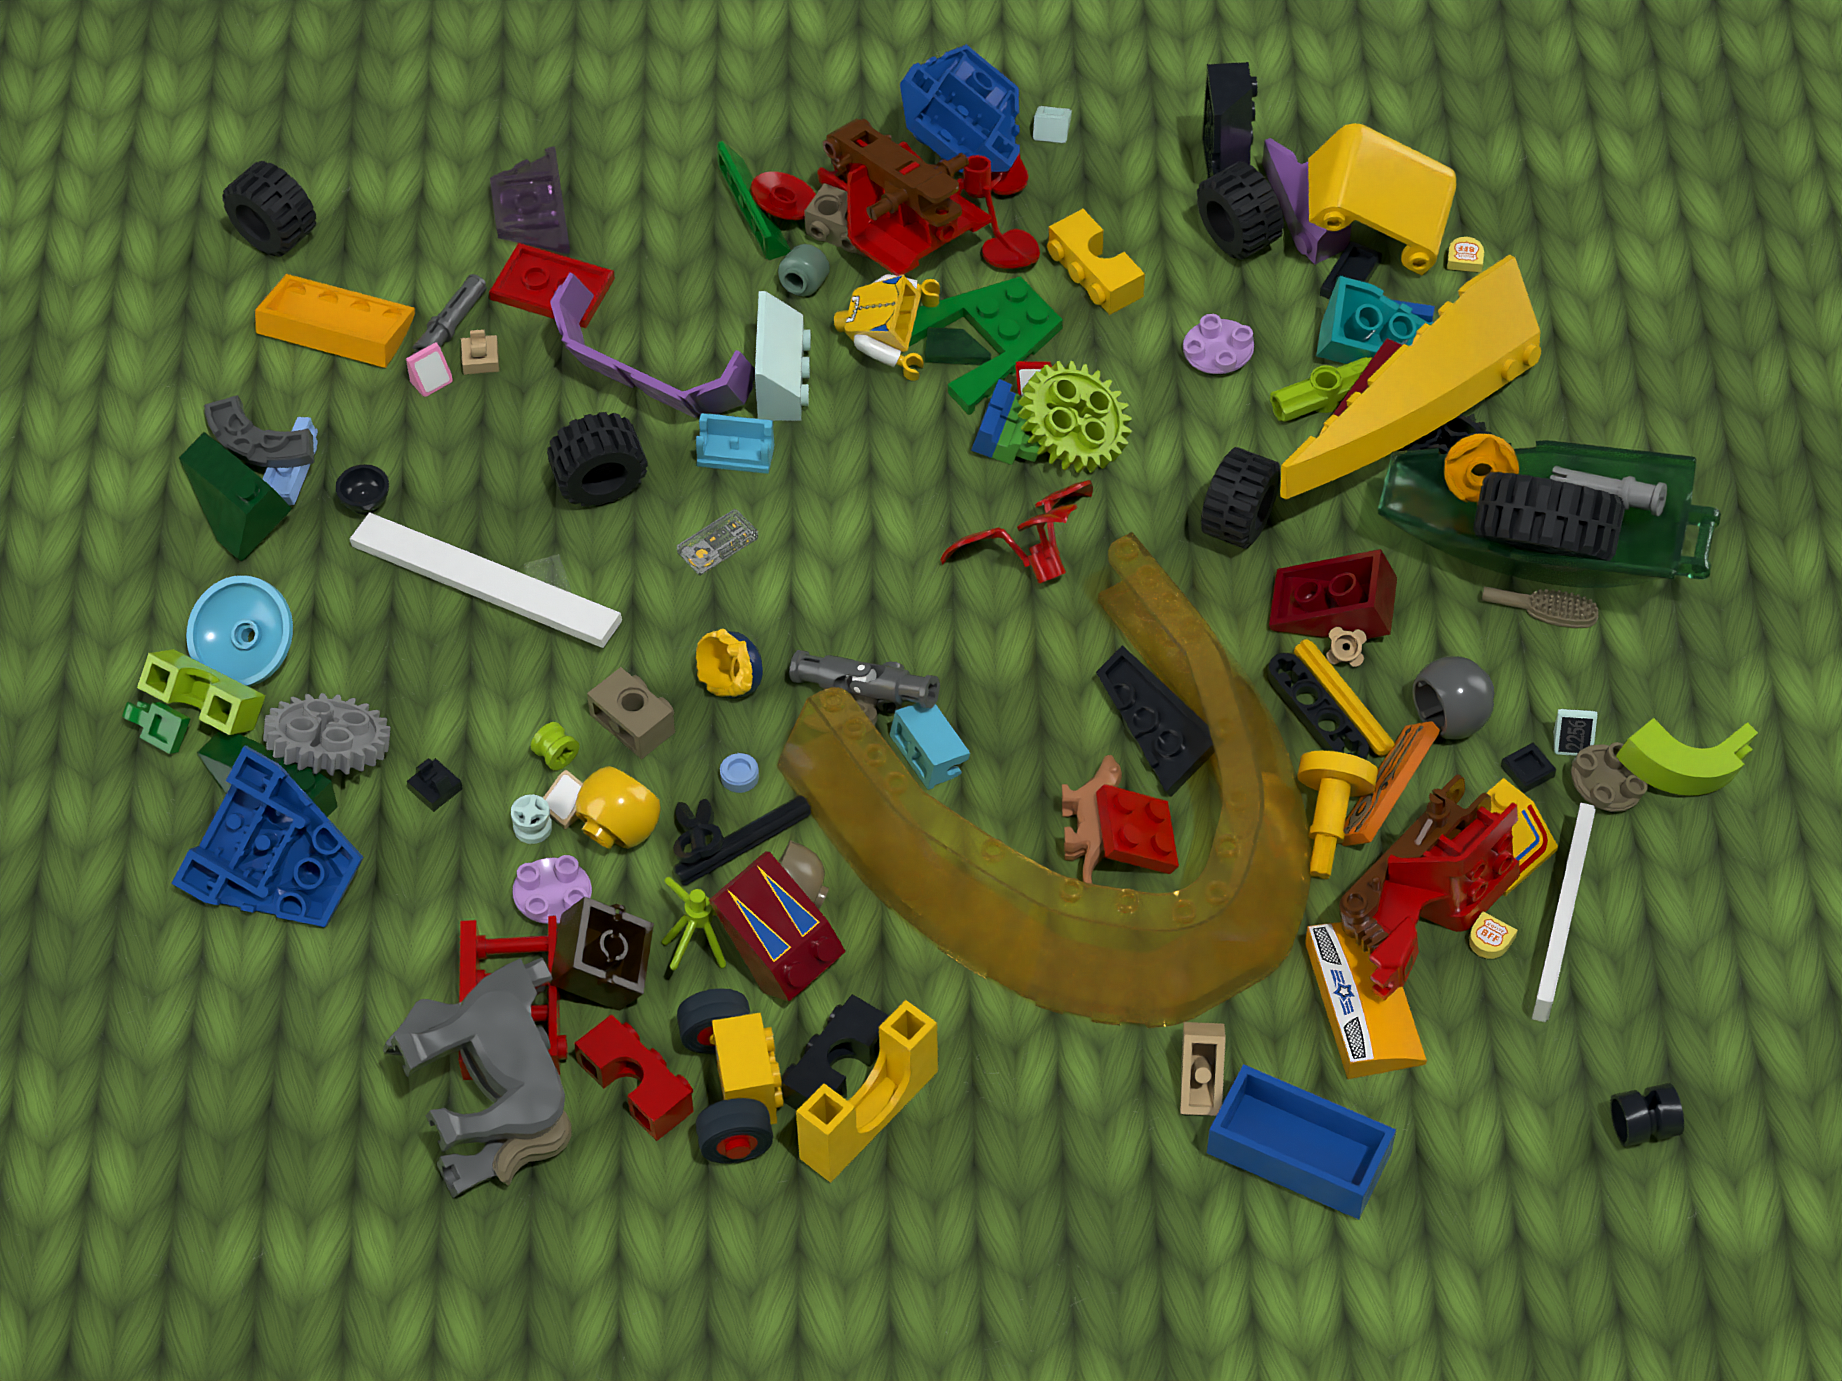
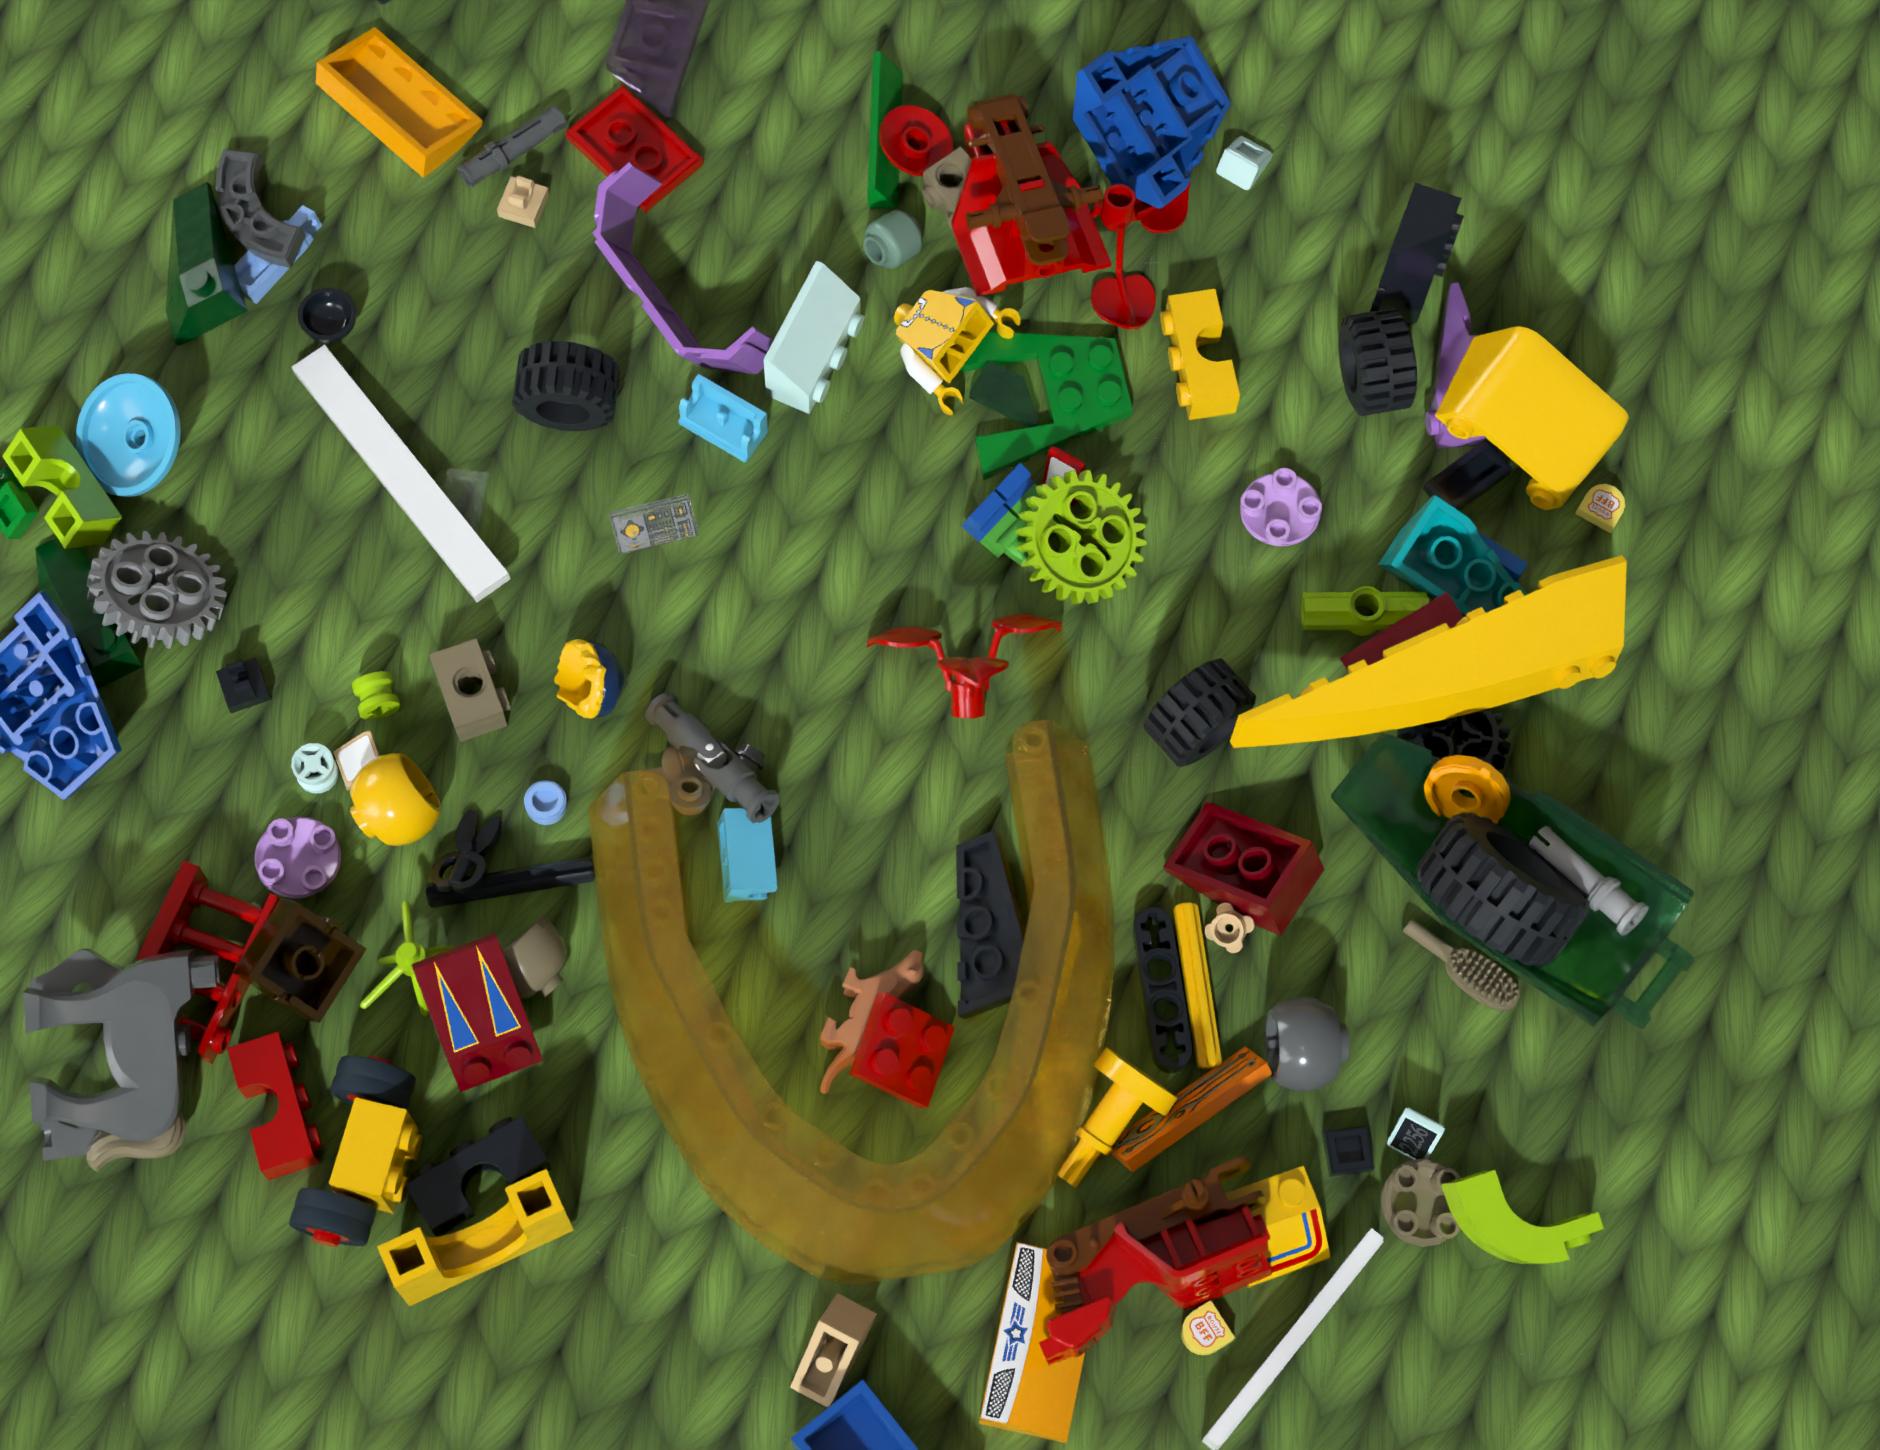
camera: 20 degrees right, 15 degrees up
(428, 370) = (461, 201): slope -> none

